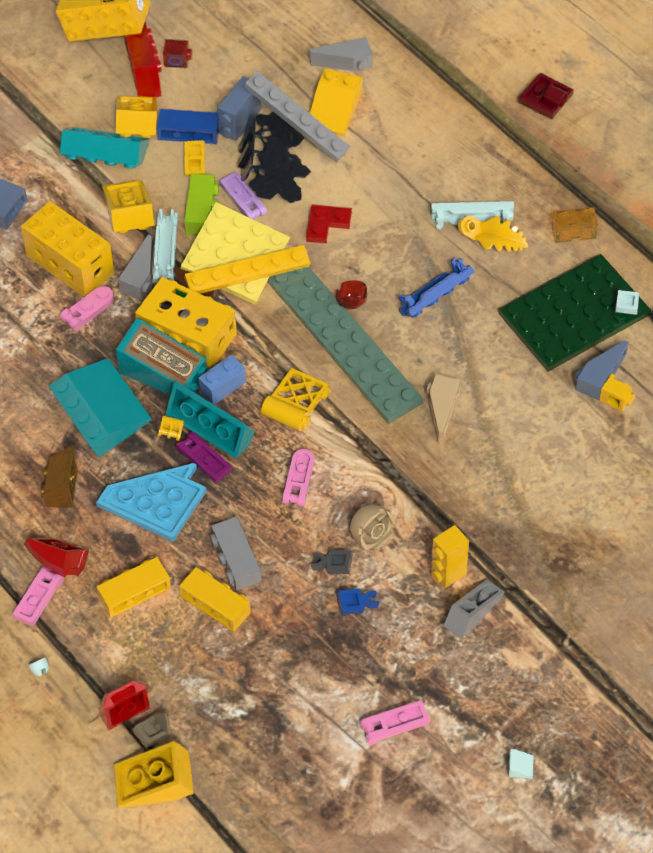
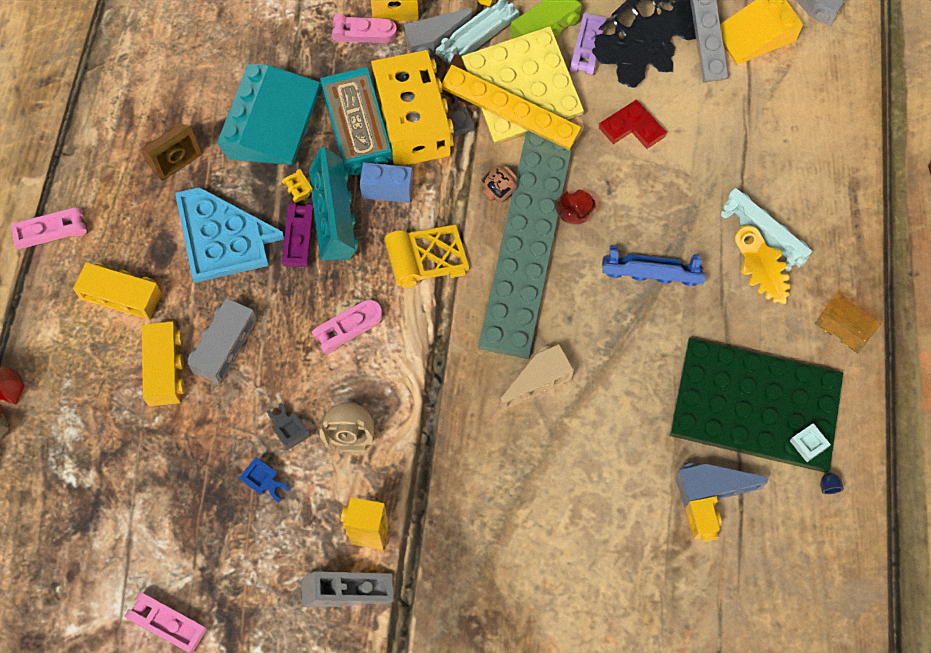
camera: 45 degrees right, 10 degrees up
(58, 555) = (94, 209): red slope -> none
(290, 321) = (499, 183): none -> nougat head

